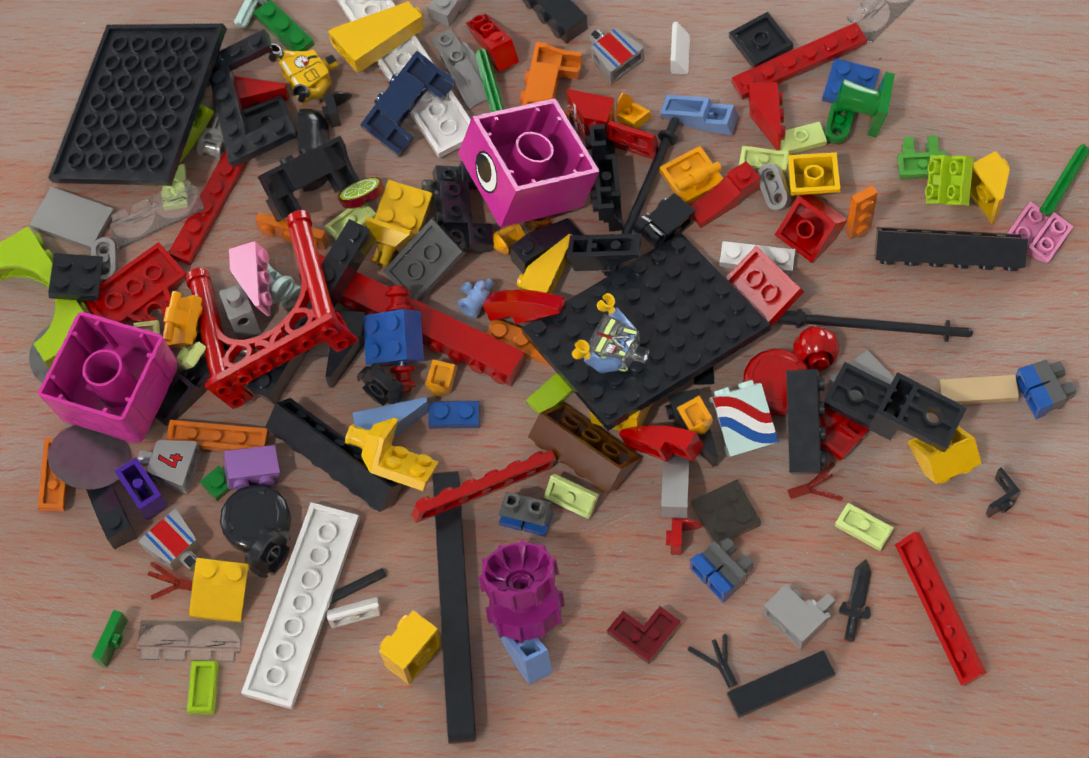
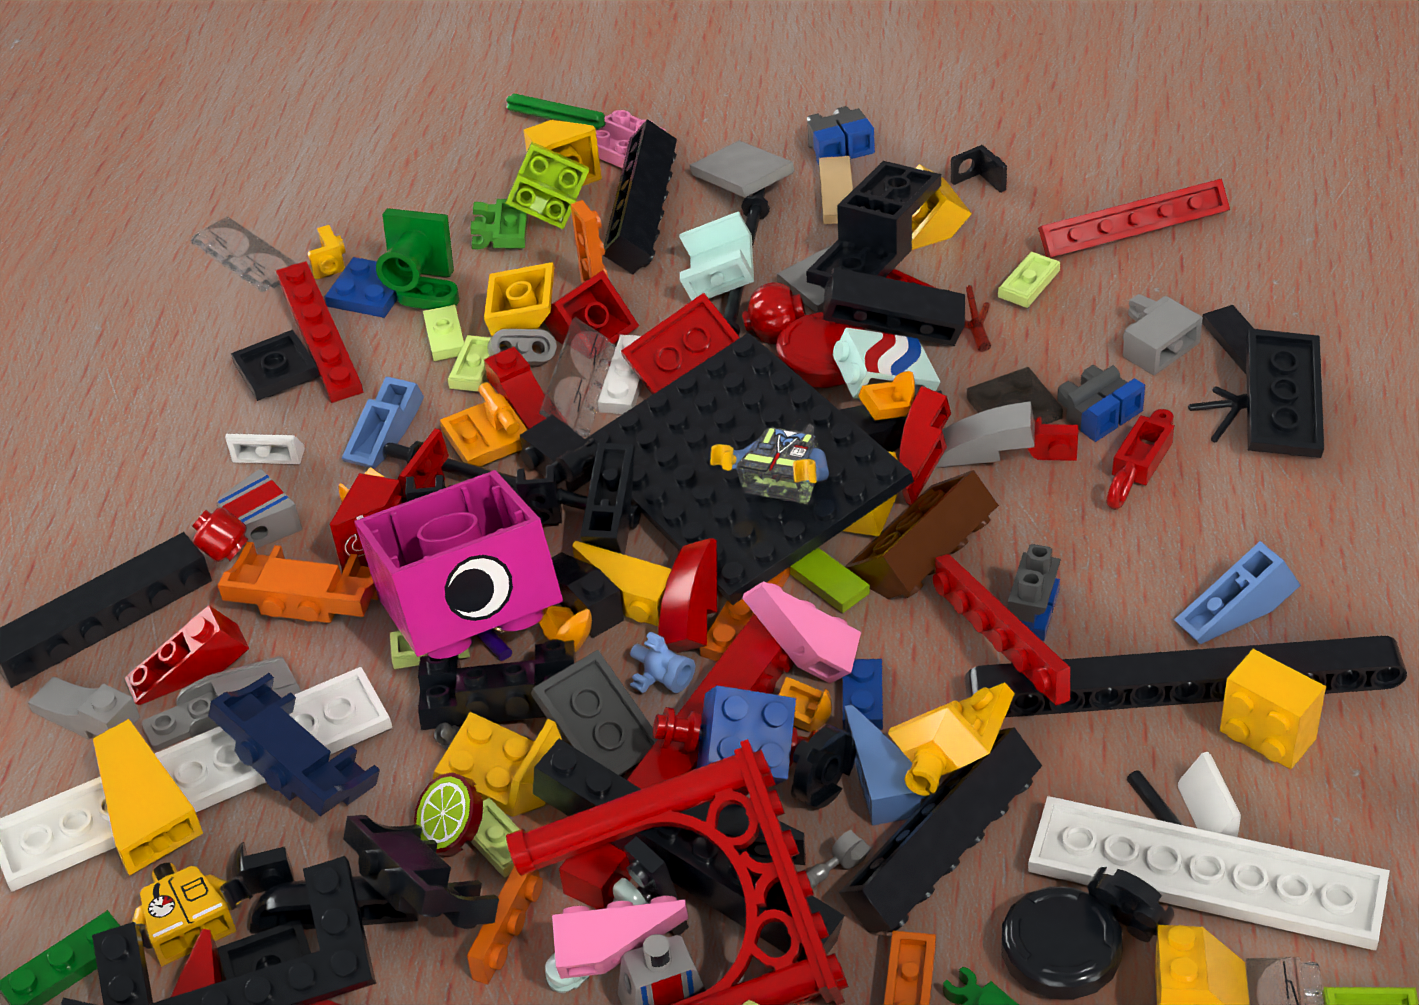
camera: 90 degrees left, 20 degrees down
(251, 467) = (970, 946): medium lavender brick -> none
(282, 291) = (651, 875): none -> black plate
(326, 403) = (847, 851): none -> light grey piece
(478, 378) = (809, 636): none -> bright pink slope
(489, 80) = (284, 654): green axle -> none
(522, 591) = (1175, 563): magenta piece -> none
(571, 496) = (1000, 550): yellowish green plate -> none
(581, 35) = (219, 534): none -> red head
(644, 639) = (1206, 471): dark red plate -> none
(664, 591) = (1137, 460): none -> red piece
(722, 694) = (1284, 393): none -> black plate
(741, 221) = (578, 378): none -> clear windscreen
(765, 111) = (403, 349): red slope -> none
(857, 600) = (1145, 288): black sword -> none
(872, 309) = (718, 257): none -> light aqua panel
(883, 54) = (328, 258): none -> yellow bracket
(993, 317) = (742, 168): none -> light grey tile

